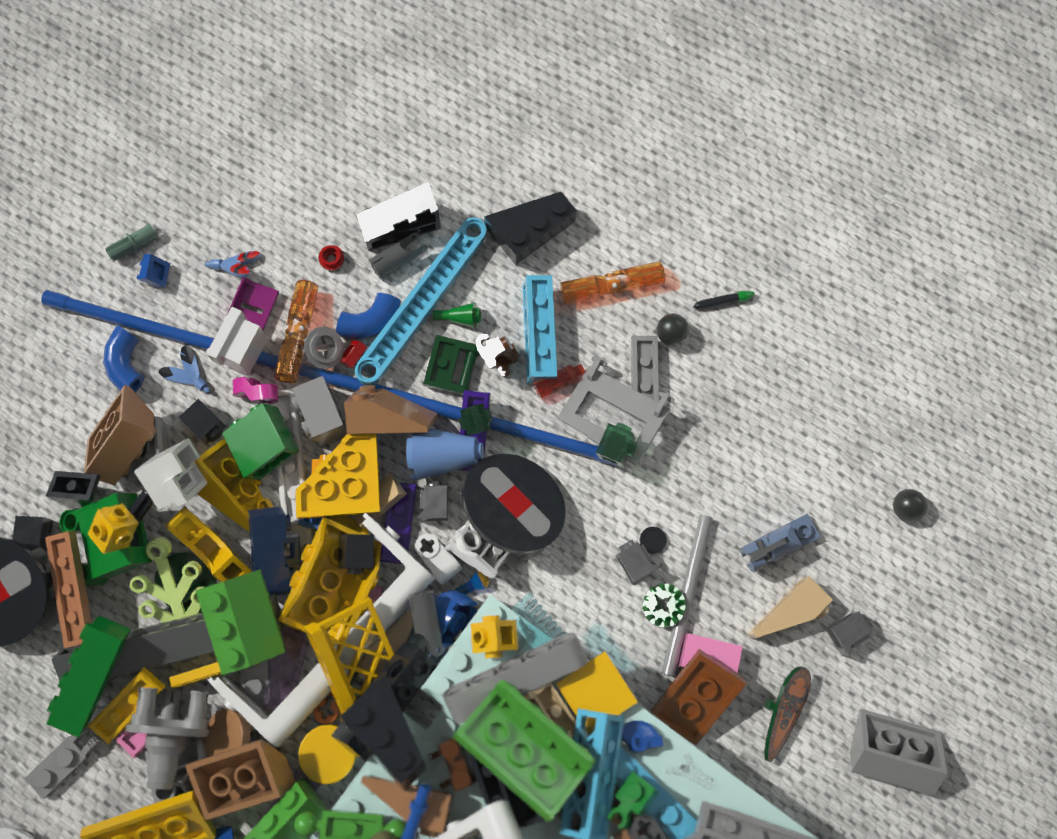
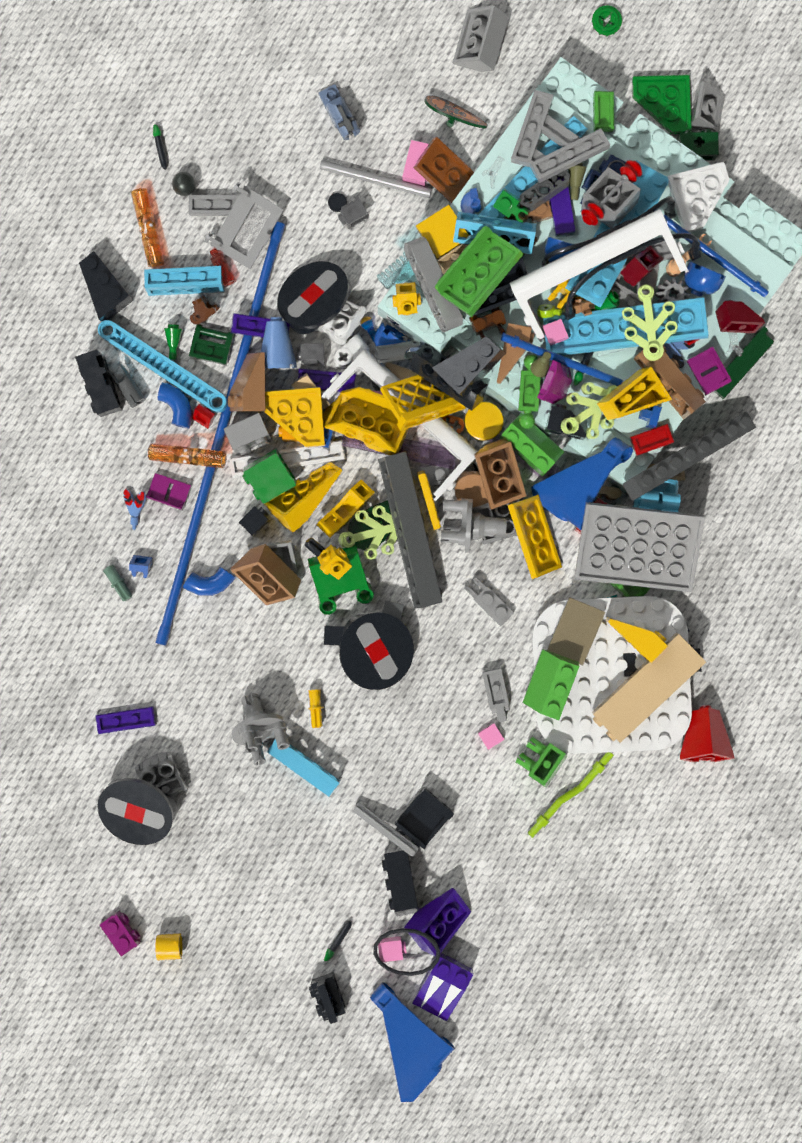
camera: 85 degrees left, 10 degrees up
(68, 586) = (374, 599): nougat plate -> none
(73, 488) = (304, 602): black slope -> none
(88, 675) = (433, 579): green brick -> none
(119, 711) = (453, 560): yellow tile -> none
(132, 742) = (475, 556): bright pink tile -> none
(172, 475) = (296, 528): white plate -> none
(190, 375) = (218, 535): medium blue piece -> none
(237, 343) = (197, 495): white plate -> none
(241, 622) = (396, 472): bright green slope -> none
(255, 390) = (233, 482): dark pink piece -> none
(267, 539) = (347, 464): dark blue piece -> none
(326, 252) = (128, 429): red plate -> none
(328, 337) = (204, 430): light grey gear -> none
(355, 552) = (348, 403): black brick -> none
(475, 419) = (253, 321): clear green gear -> none
(617, 444) = (271, 222): clear green brick -> none
(676, 605) = (392, 196): gear -> none
(798, 606) = (382, 100): tan slope -> none
(850, 632) = (400, 67): flat silver window -> none
(910, 505) = (312, 19): pearl dark grey piece -> none

